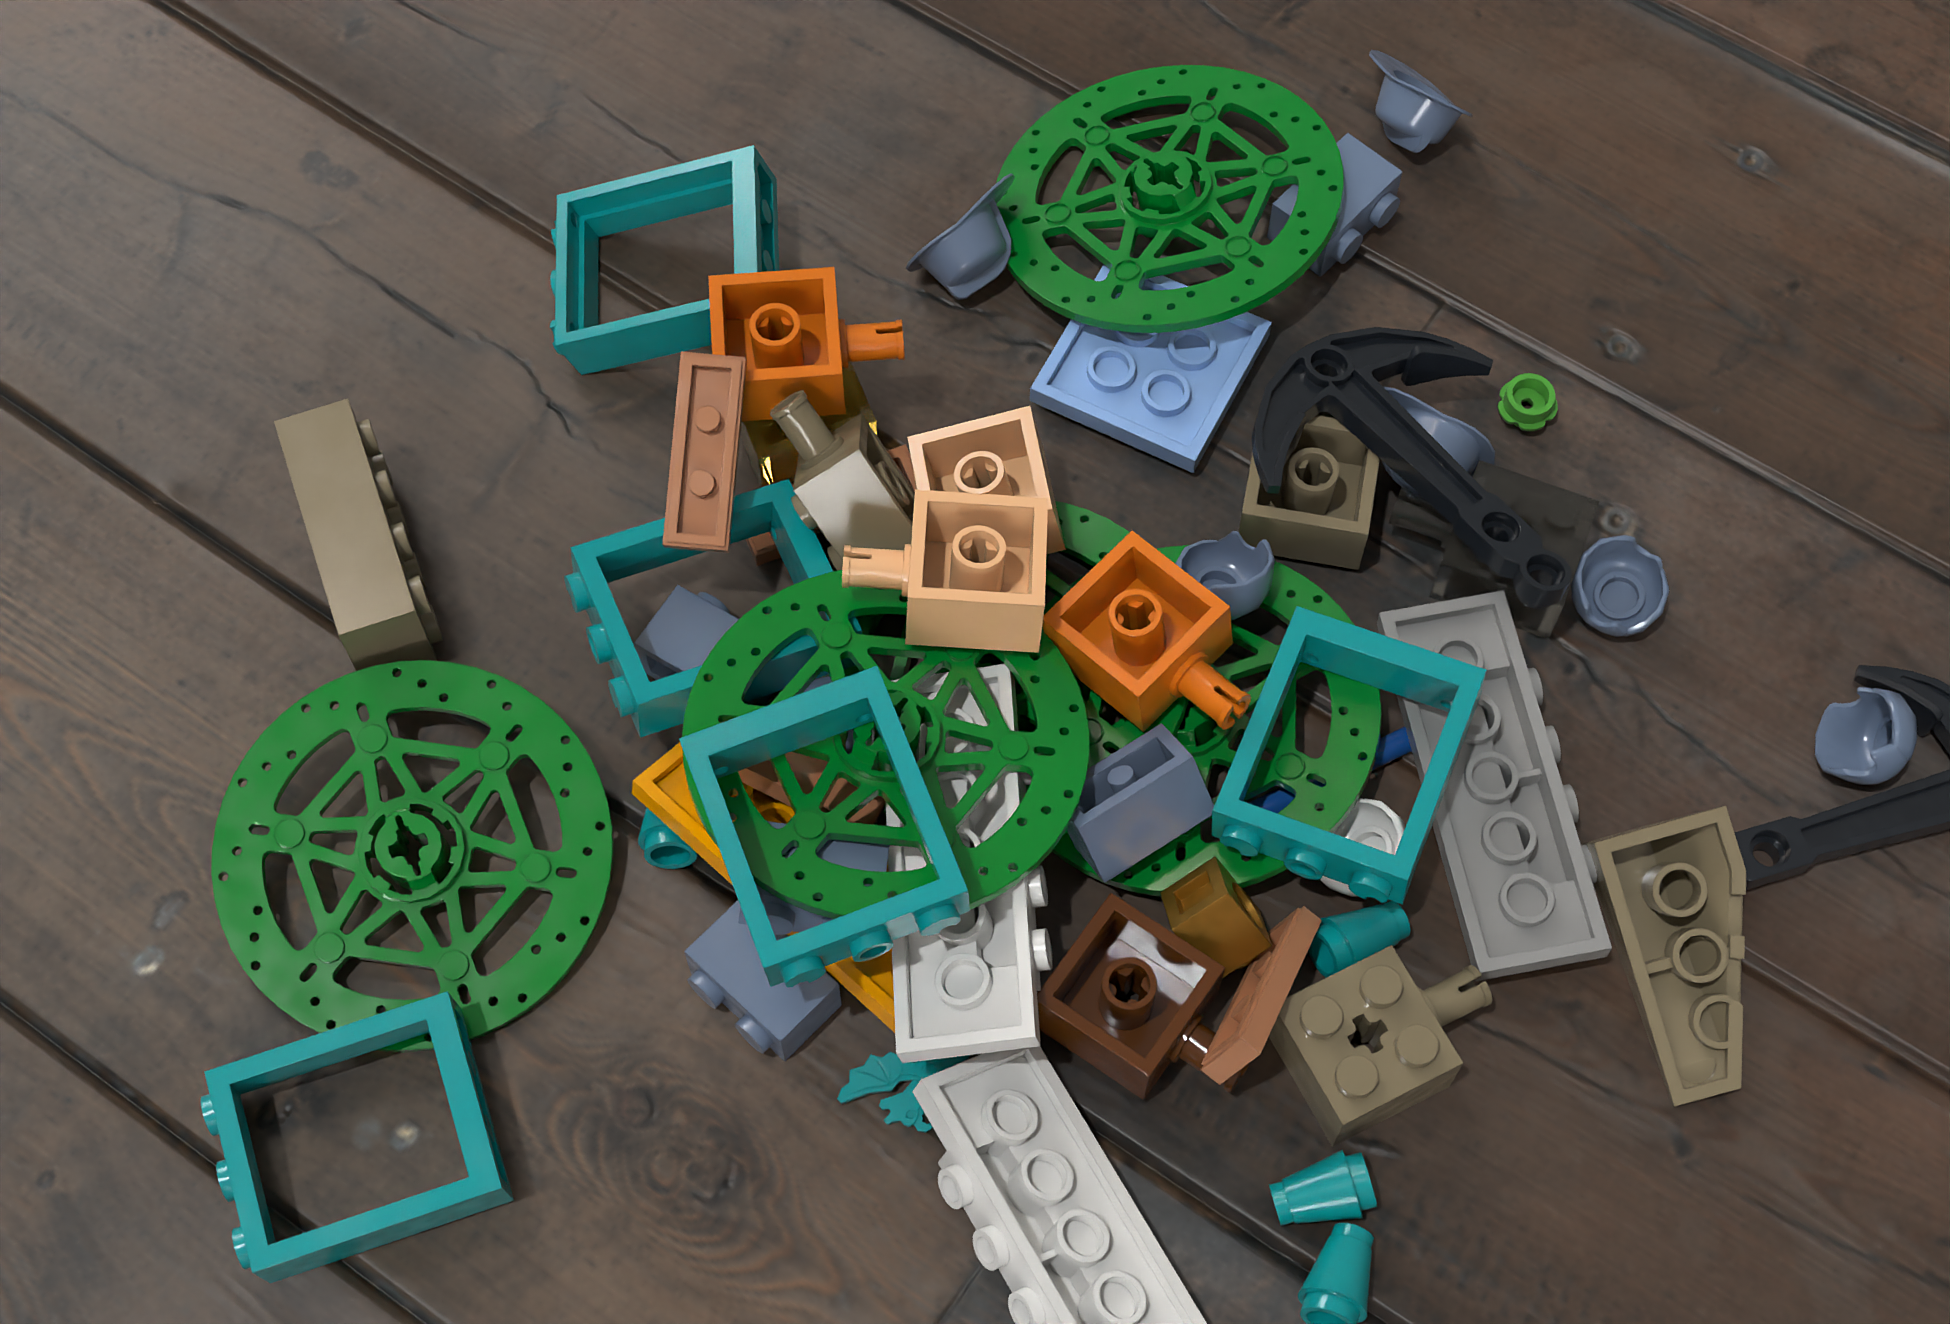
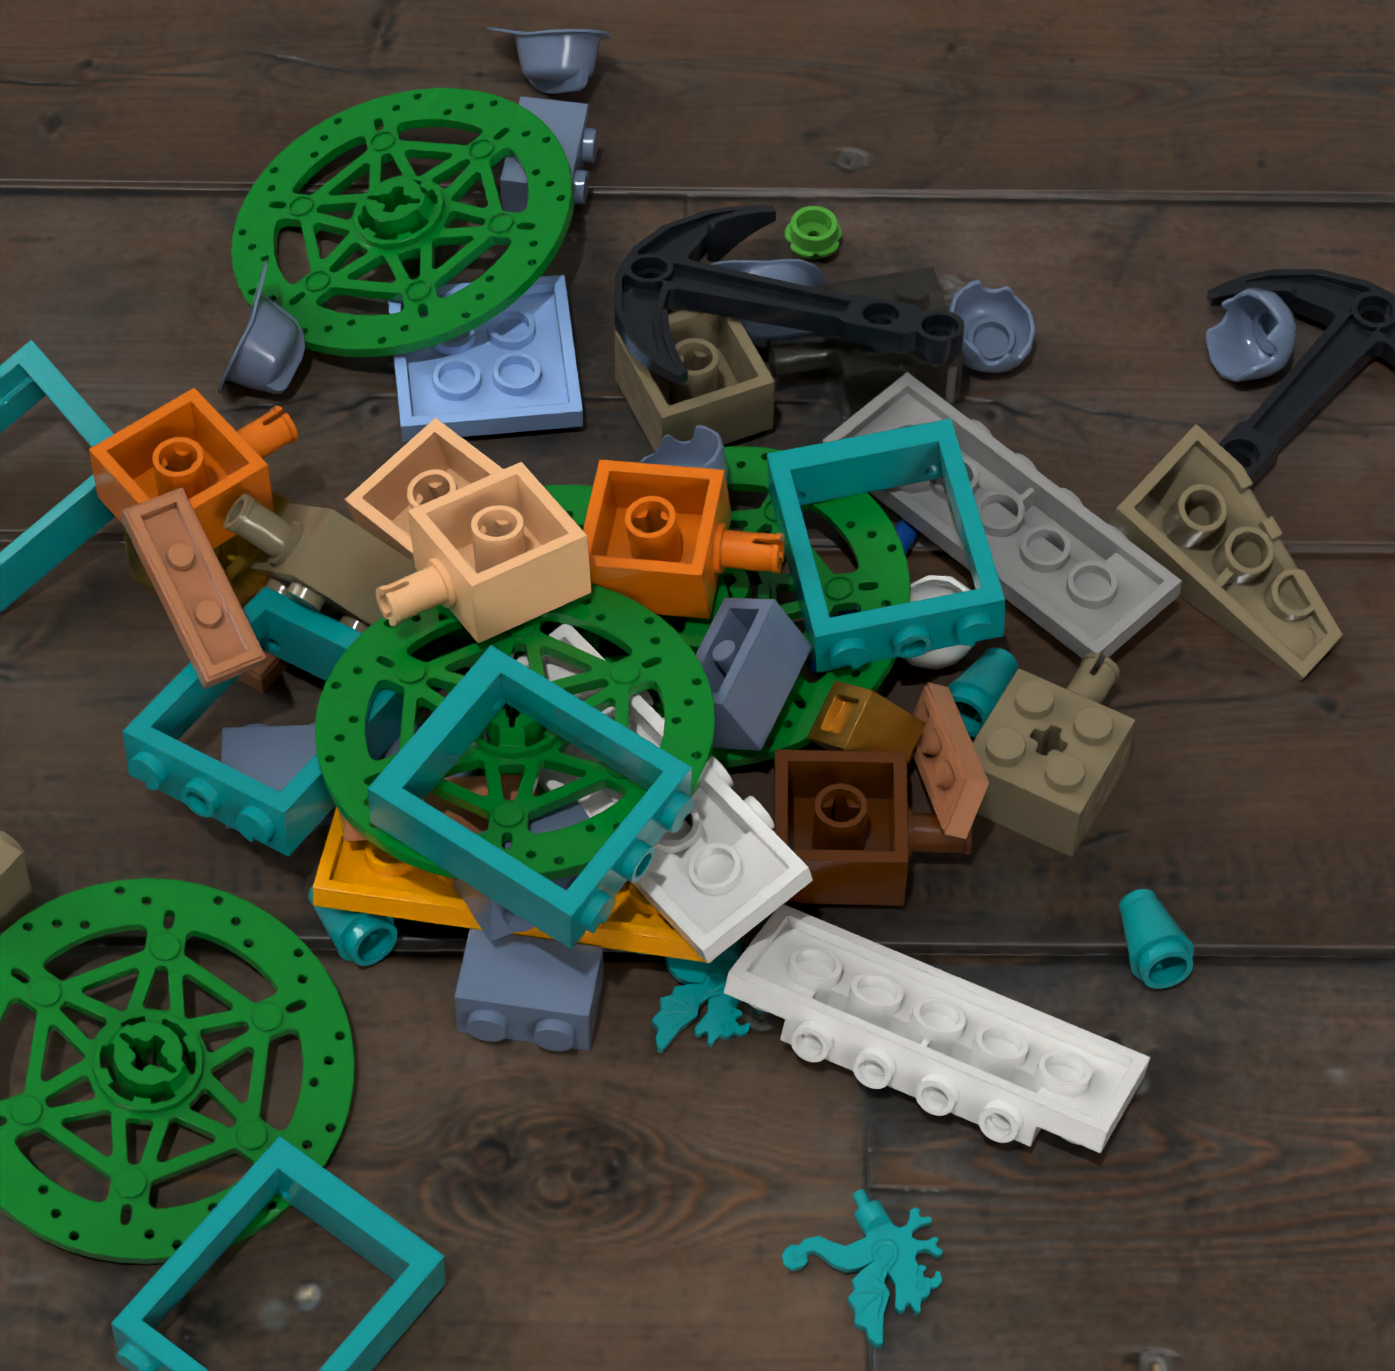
camera: 35 degrees left, 10 degrees down
(1325, 1191) = (1096, 882): teal cone -> none

